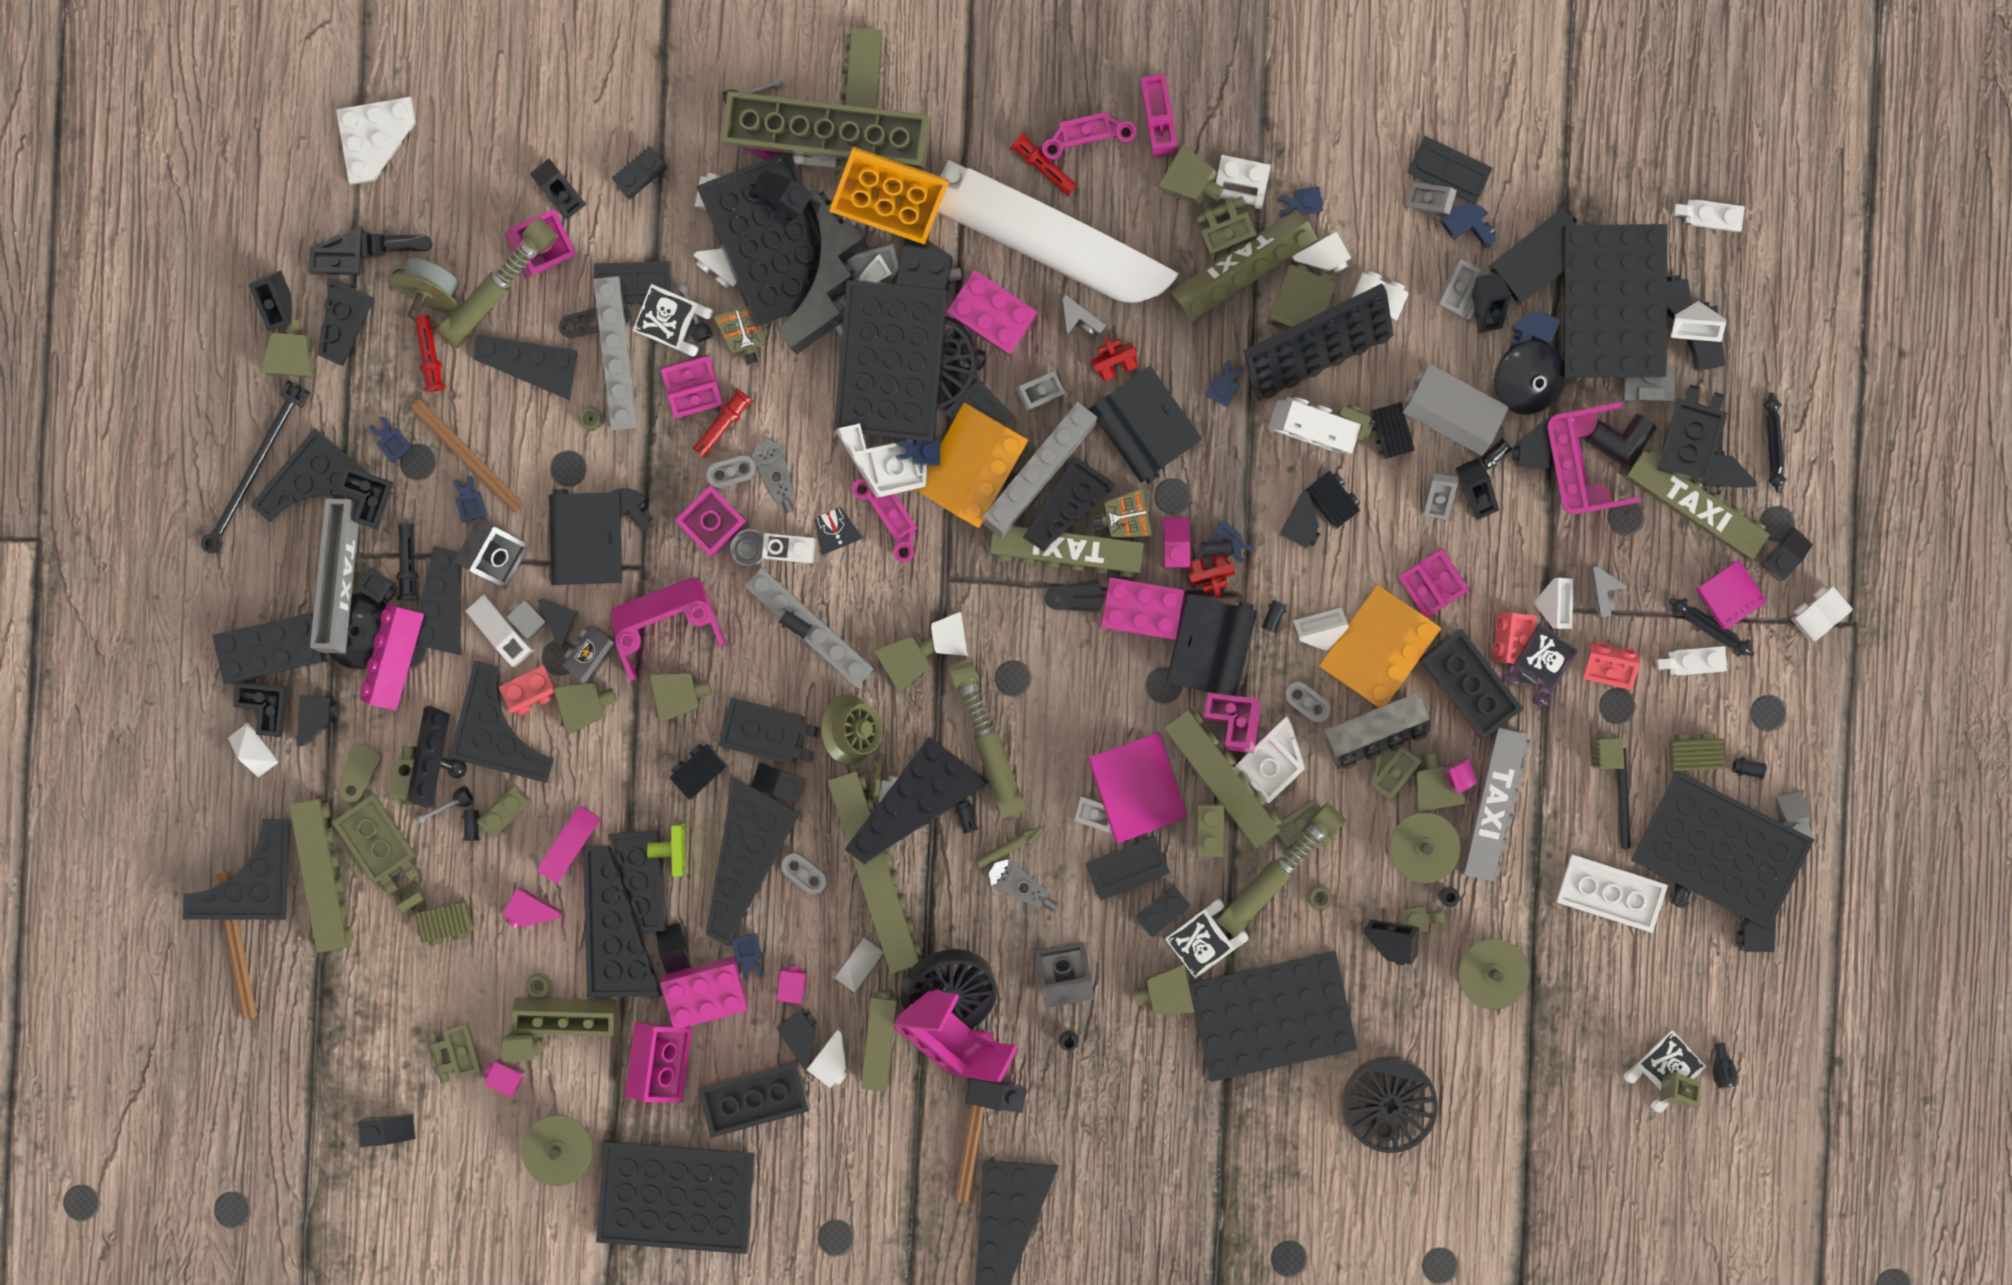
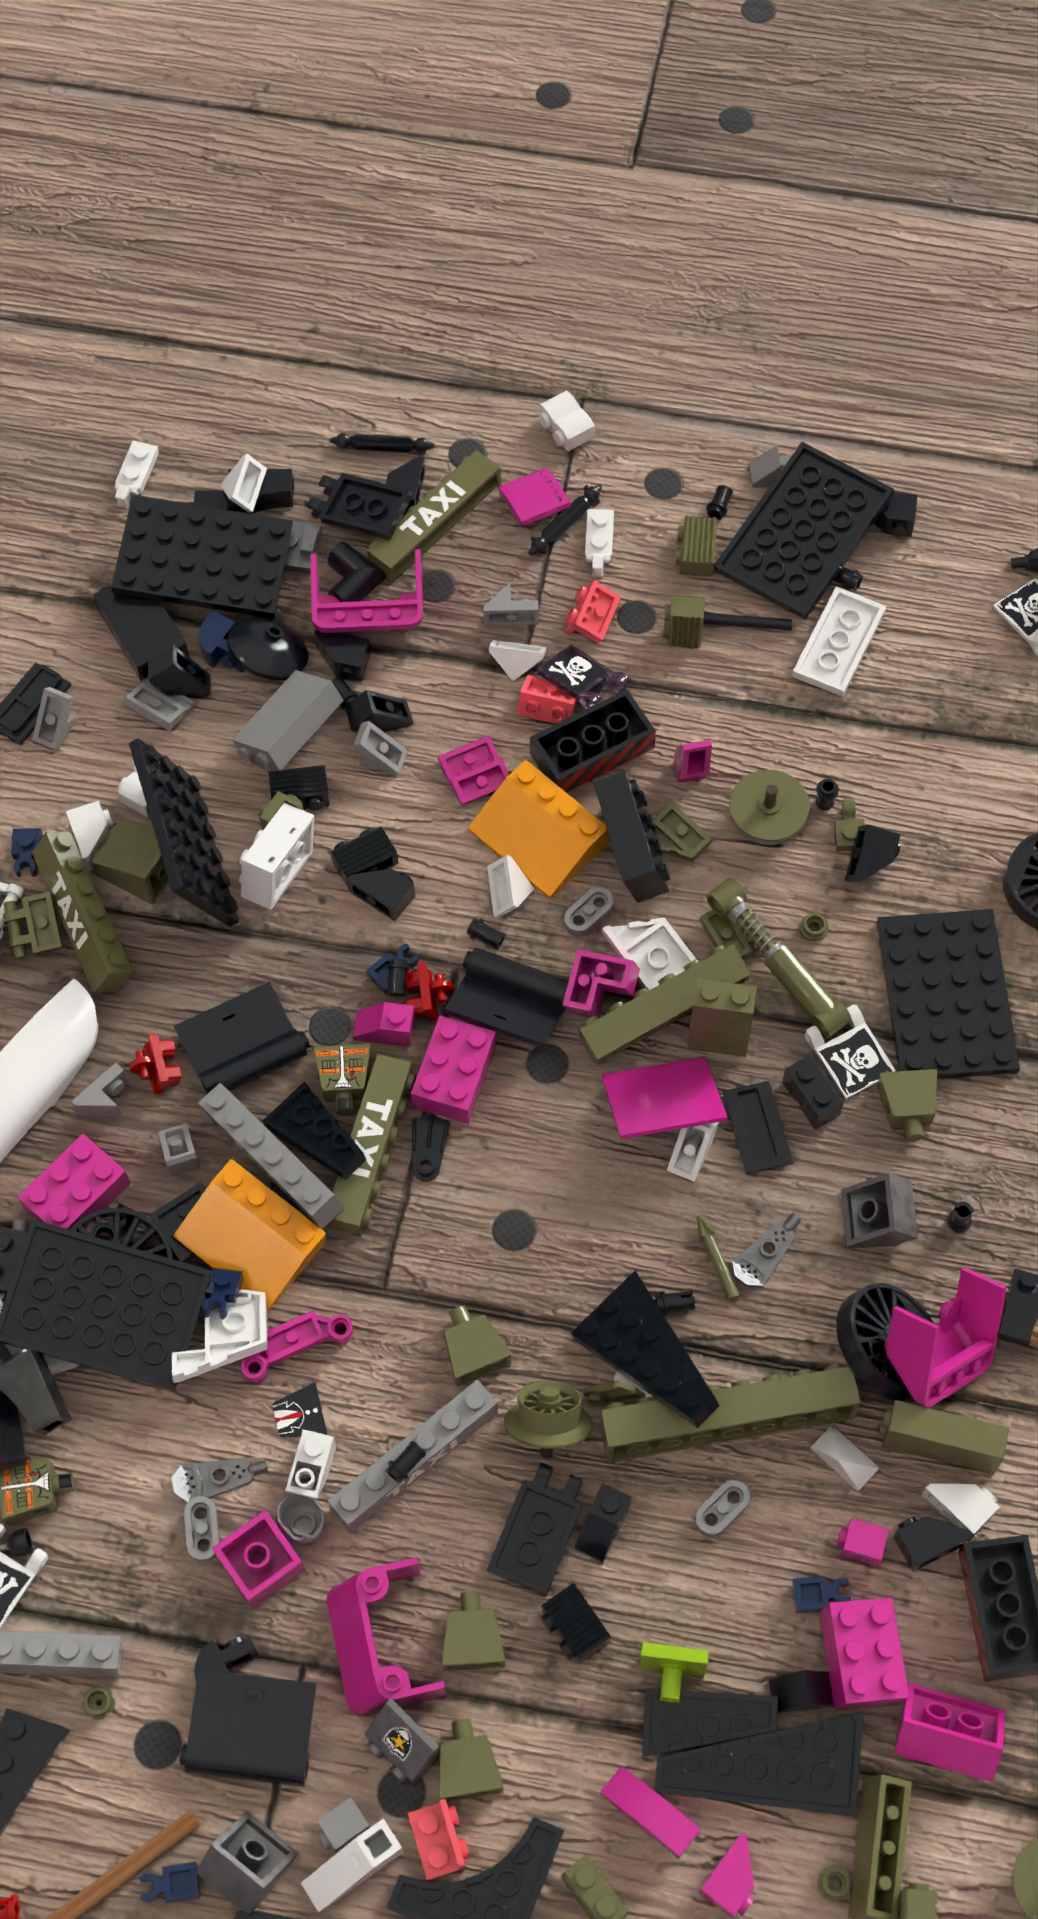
camera: 80 degrees left, 25 degrees down
(559, 620) = (350, 1780): black slope -> none
(691, 386) = (85, 1566): dark pink slope -> none
(730, 413) = (129, 1520): red pin -> none
(750, 844) = (676, 1570): black wing -> none
(949, 635) = (451, 1291): white sticker -> none
(988, 741) = (656, 1248): olive piece -> none
(1223, 387) = (215, 955): dark blue plate -> none
(1432, 786) = (703, 795): olive torso -> none
(1468, 217) = (86, 686): dark blue brick -> none
(1493, 974) = (918, 756): olive piece -> none
(1494, 804) = (731, 738): light grey brick -> none
(1787, 555) = (503, 445): black slope -> none

